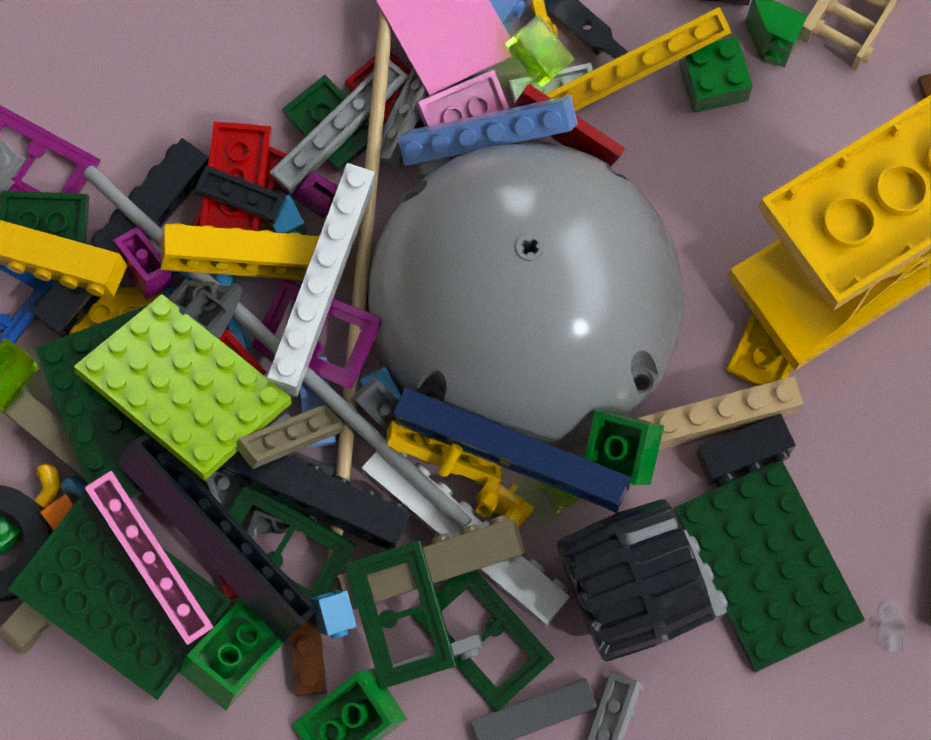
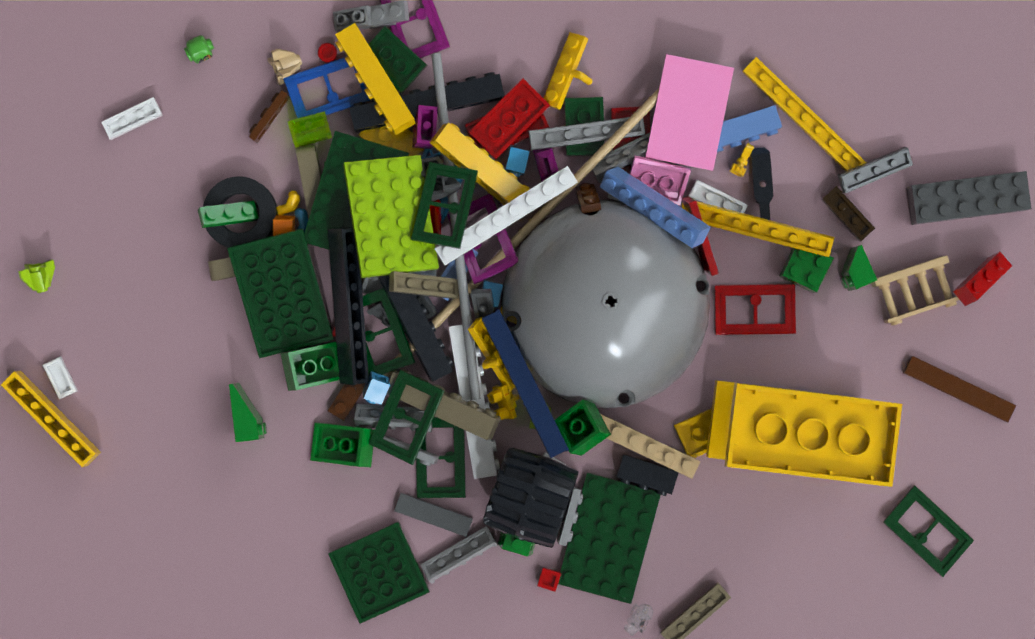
camera: 35 degrees right, 15 degrees up
(149, 557) = (306, 290): bright pink brick -> none
(240, 194) = (503, 131): black tile -> none
(257, 78) = (566, 70): none -> yellow plate
(264, 309) = (461, 209): none -> dark green door
(355, 652) = (371, 414): none -> light grey hinge
(401, 188) = (588, 198): none -> reddish brown plate
(539, 51) = (722, 180): clear neon green brick -> none
(662, 660) = (515, 545): none -> green torso
(685, 148) = (722, 291): none -> red door
(741, 673) = (549, 579): none -> red plate

